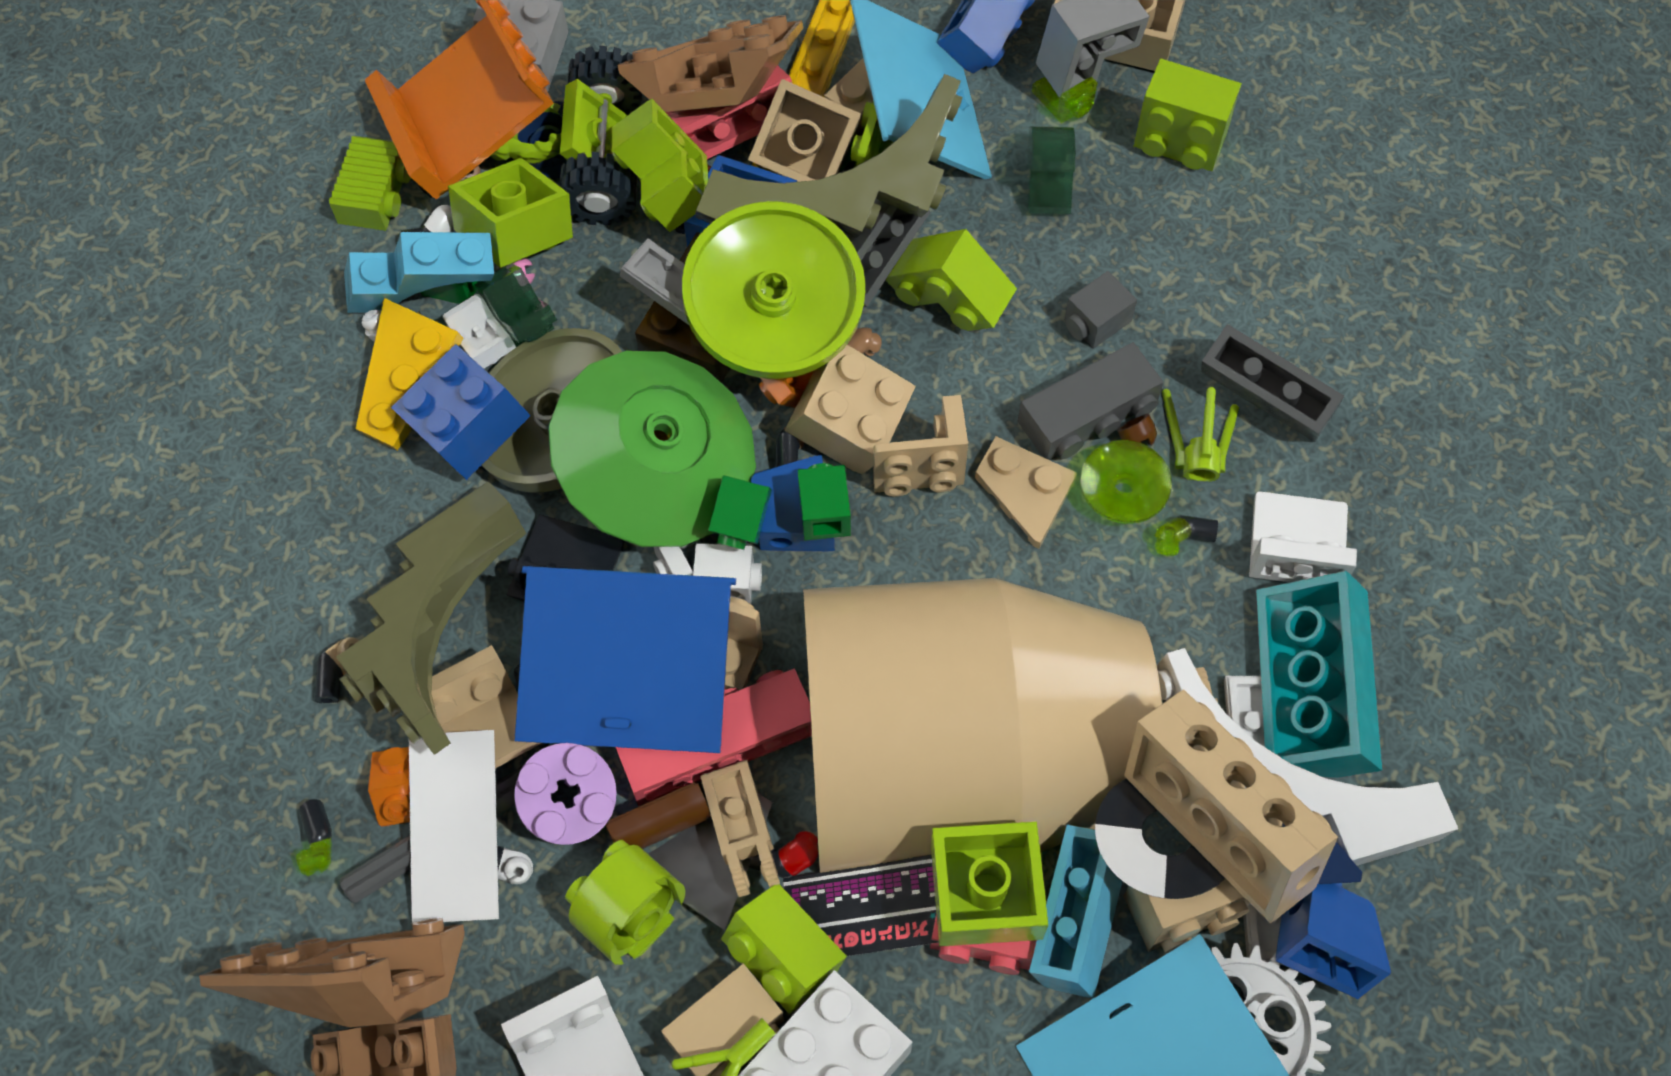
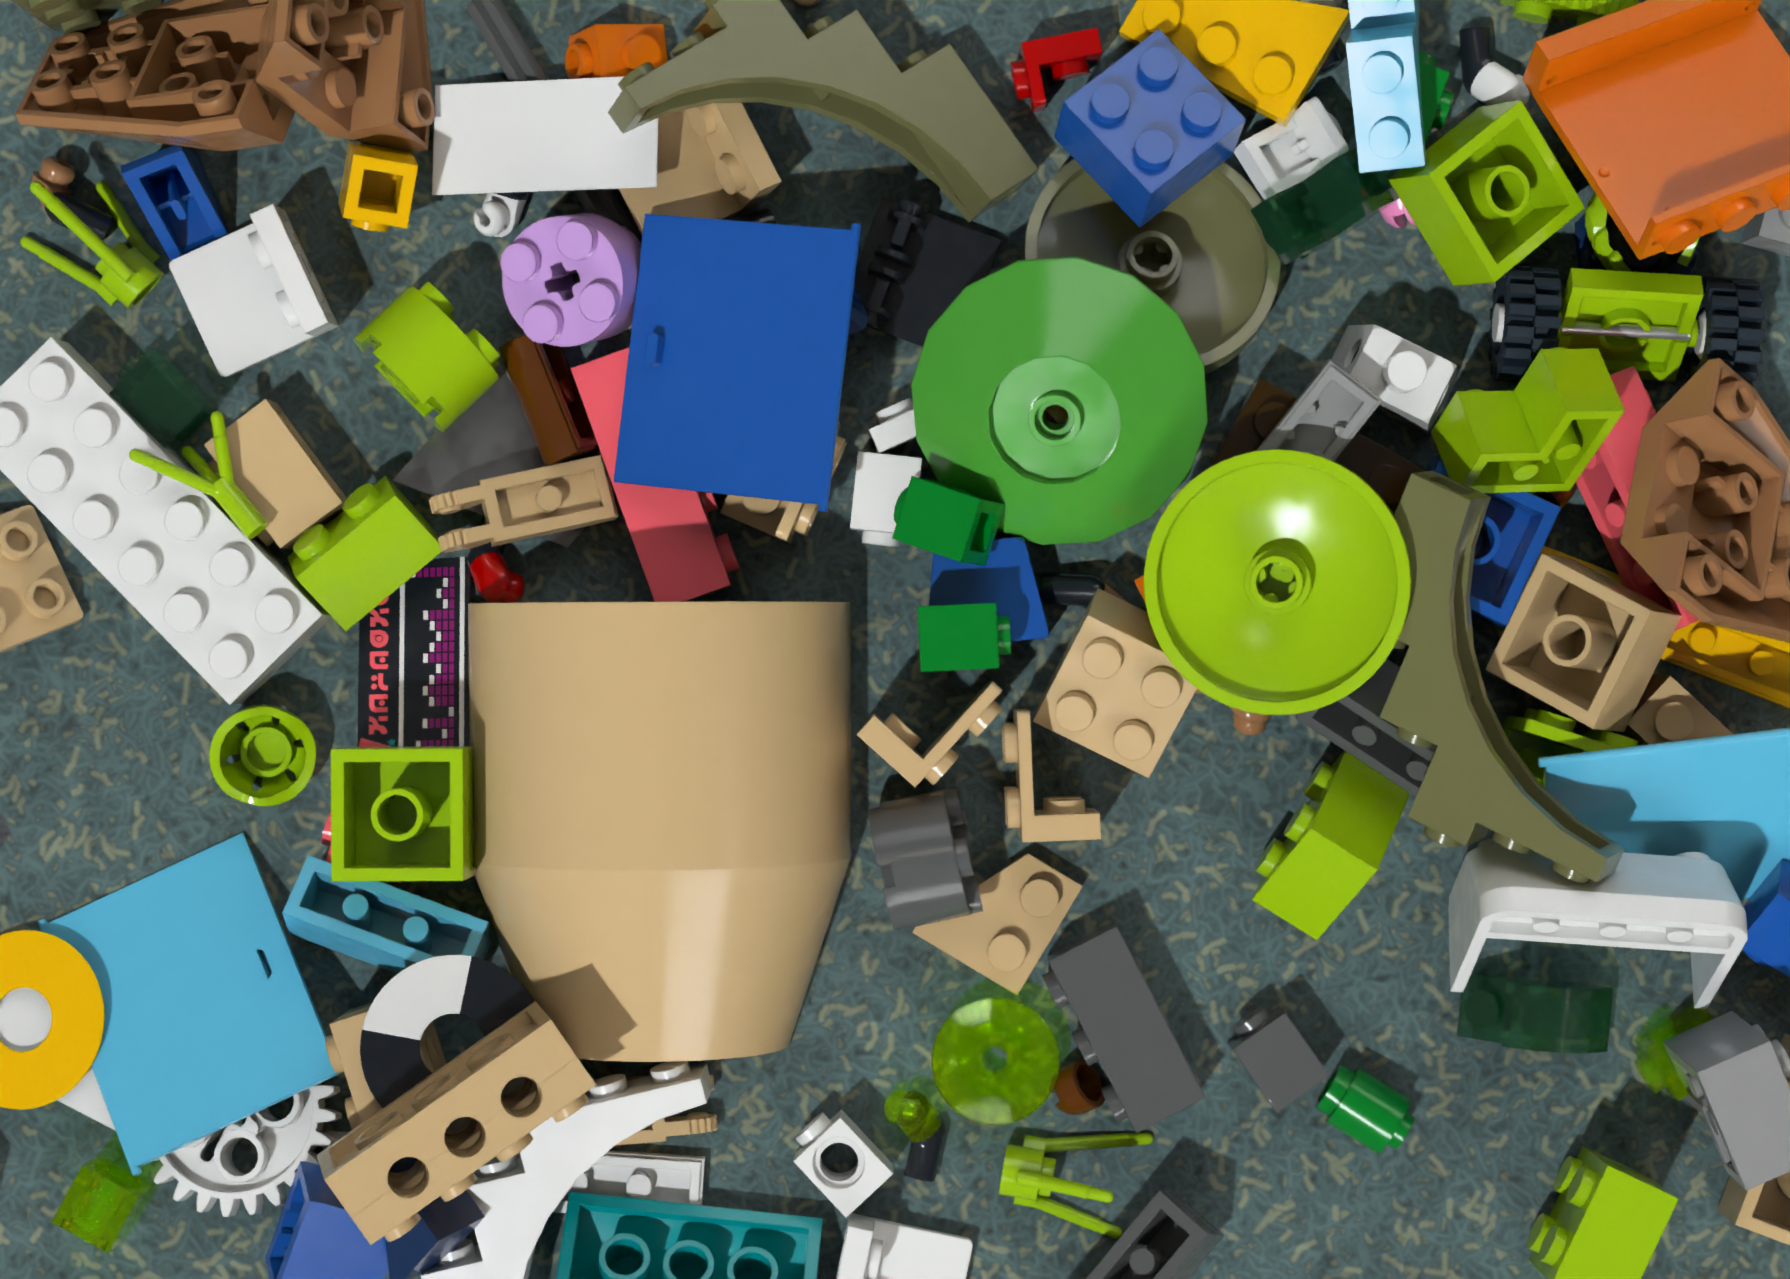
camera: 90 degrees right, 25 degrees up
(410, 483) = (1062, 54): none -> red bracket
(490, 953) = (377, 186): none -> yellow brick
(625, 240) = (1399, 372): none -> white torso
(904, 518) = (897, 741): none -> tan bracket
(948, 1025) = (264, 753): none -> lime helmet
(974, 144) = (1645, 904): none -> white windscreen
(986, 526) = (924, 858): none -> dark grey brick
(1129, 256) = (1365, 1109): none -> green brick
(1224, 564) = (848, 1188): none -> white brick

